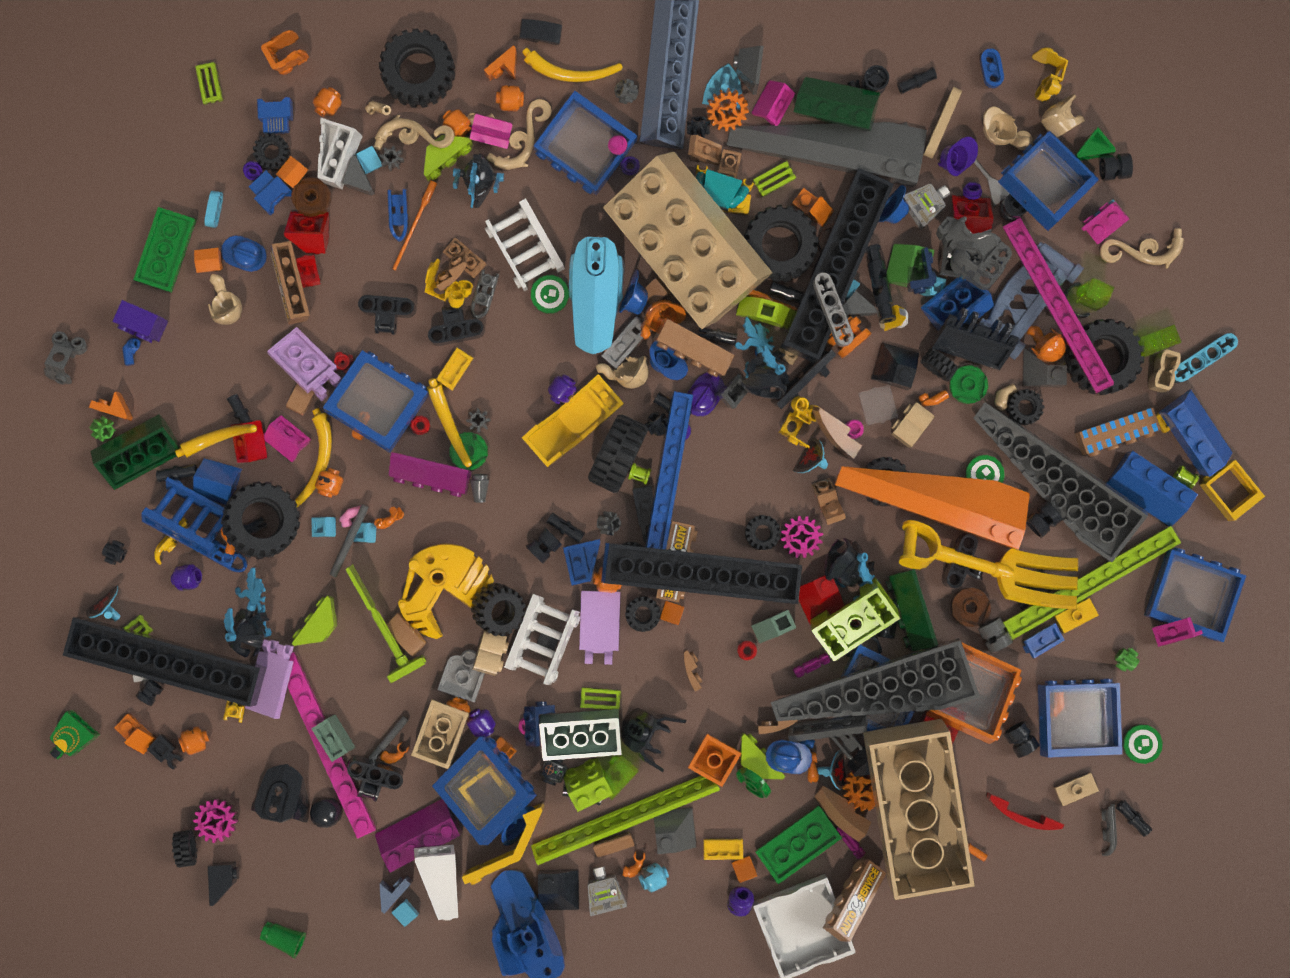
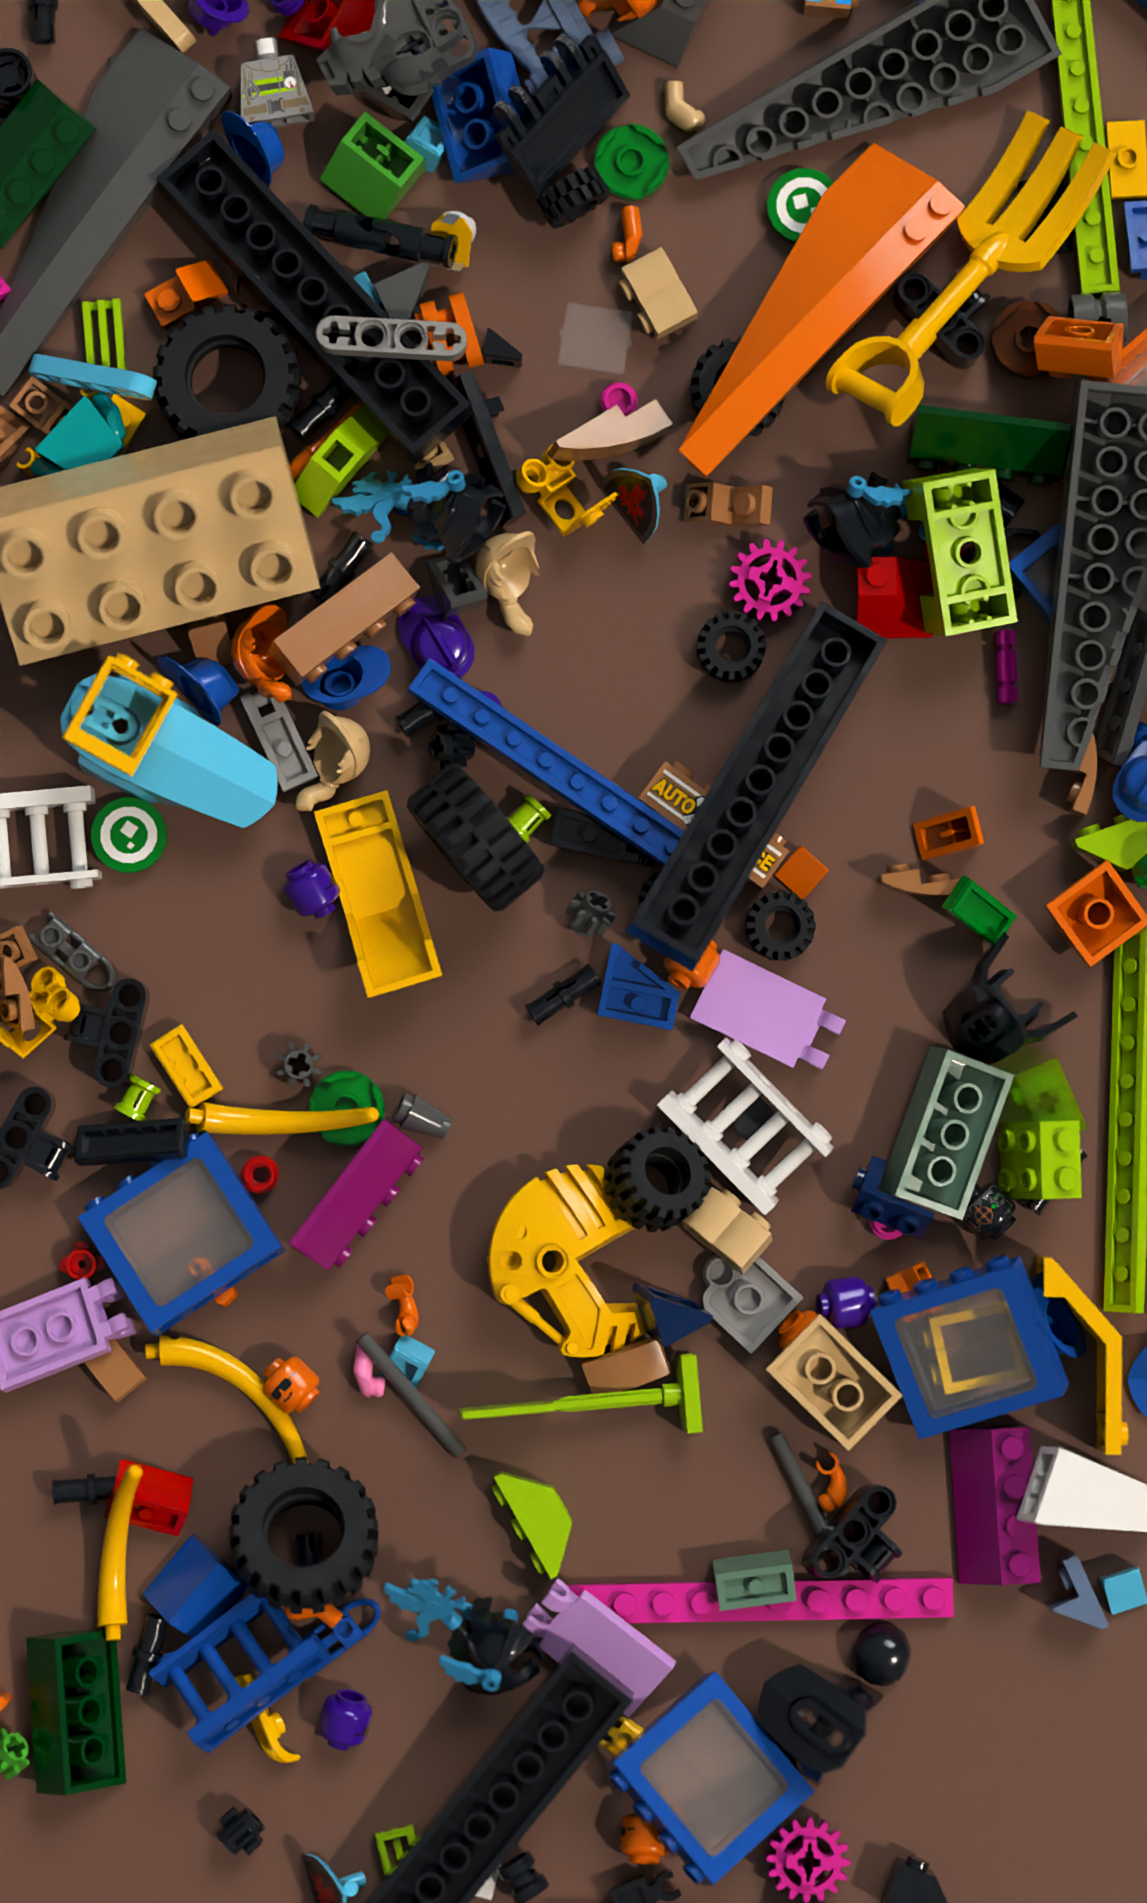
camera: 65 degrees left, 0 degrees up
(230, 758) = (708, 1779): none -> piece
(283, 938) = (1072, 1829): green plant -> none
(286, 438) = (174, 1428): dark pink panel -> none
(323, 526) = (365, 1431): medium azure slope -> none
(408, 359) = (132, 1141): none -> black plate
(429, 349) = (136, 1086): none -> lime bush
(438, 643) = (667, 1315): none -> dark blue slope
(549, 540) = (572, 1034): black wheel -> none
(579, 259) = (155, 684): none -> yellow window
(597, 698) = (882, 1098): lime tile -> none
(691, 703) = (978, 910): none -> green tile
(721, 673) = (948, 833): none -> orange slope
(750, 411) = (505, 572): none -> tan piece
(751, 655) = (939, 764): red plate -> none
(753, 181) = (92, 377): none -> medium azure beam
(773, 626) = (907, 701): sand green slope -> none
(851, 363) = (500, 352): none -> black slope
(895, 366) = (541, 275): black slope -> none
(920, 286) = (419, 165): dark blue bracket -> none
(976, 632) = (1079, 348): none -> orange slope
(1032, 397) = (717, 57): black tyre -> none
(1040, 525) = (934, 152): black wheel -> none

